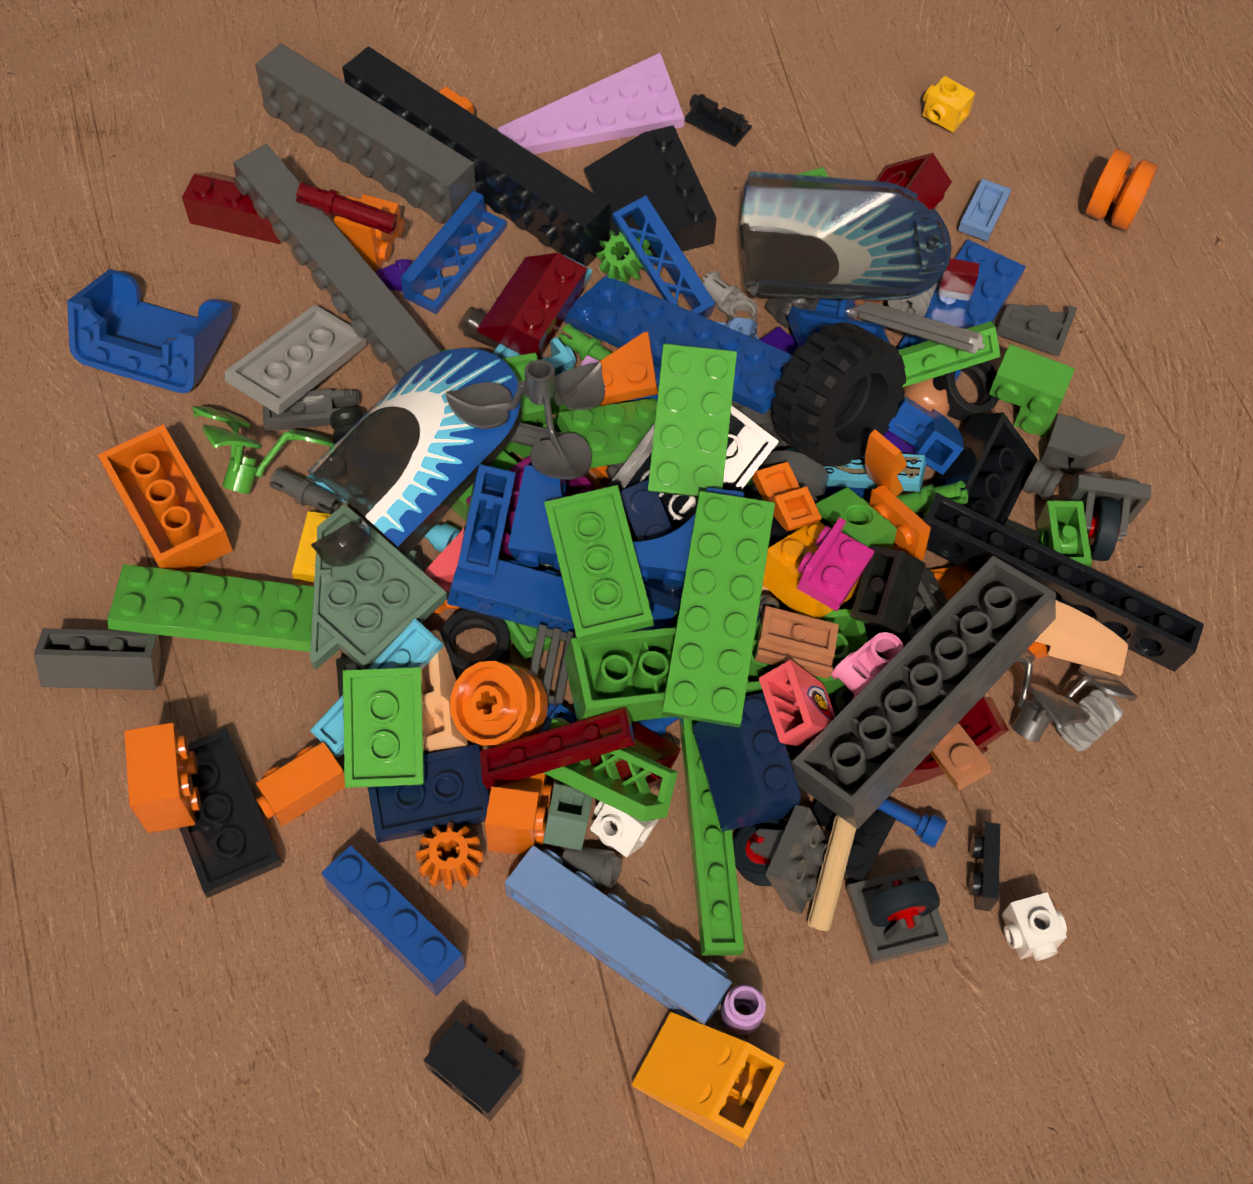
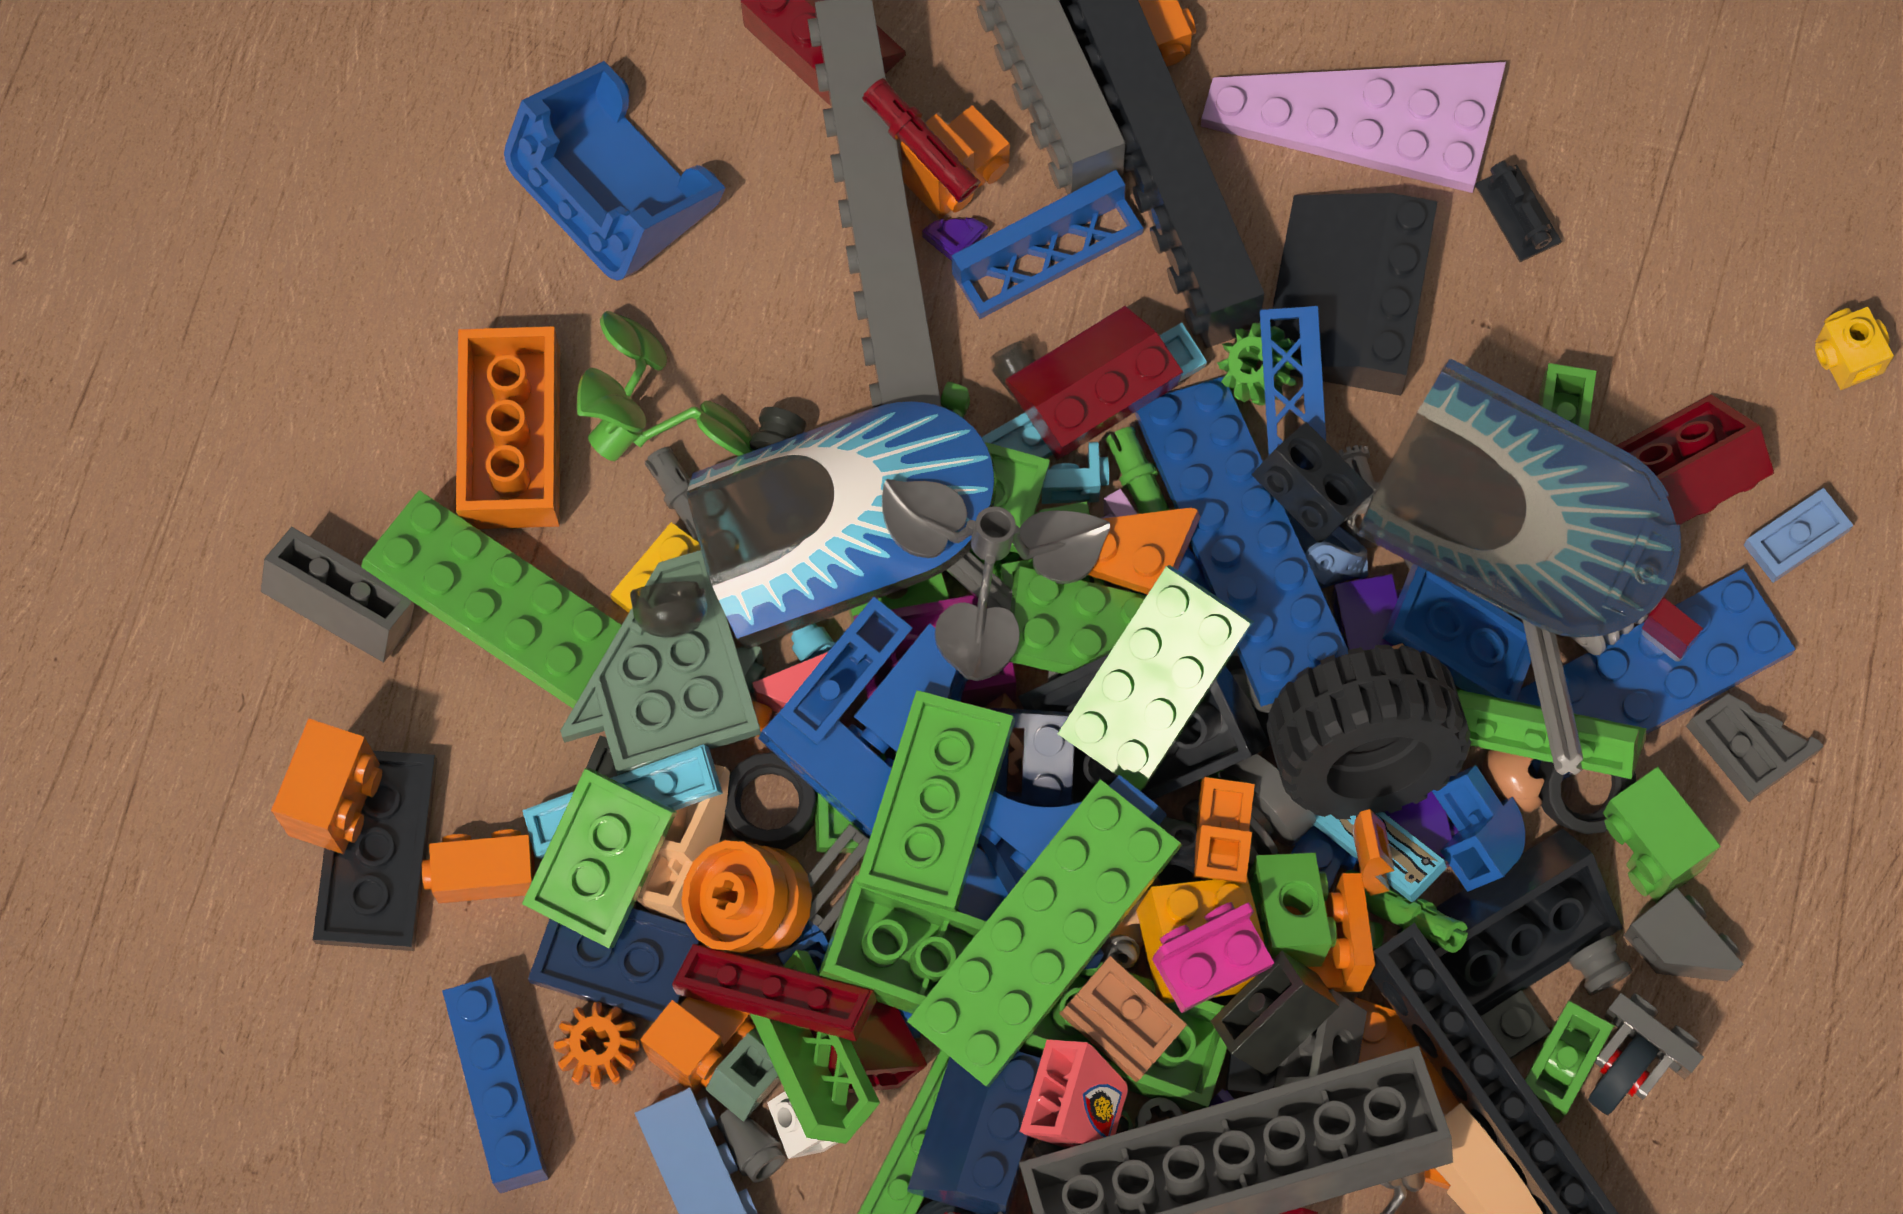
camera: 35 degrees right, 10 degrees up
(295, 359) = (762, 307): light grey plate -> none
(310, 410) = (741, 378): dark grey hinge -> none
(704, 290) = (1313, 482): none -> black brick
(865, 664) = (1185, 1091): bright pink piece -> none

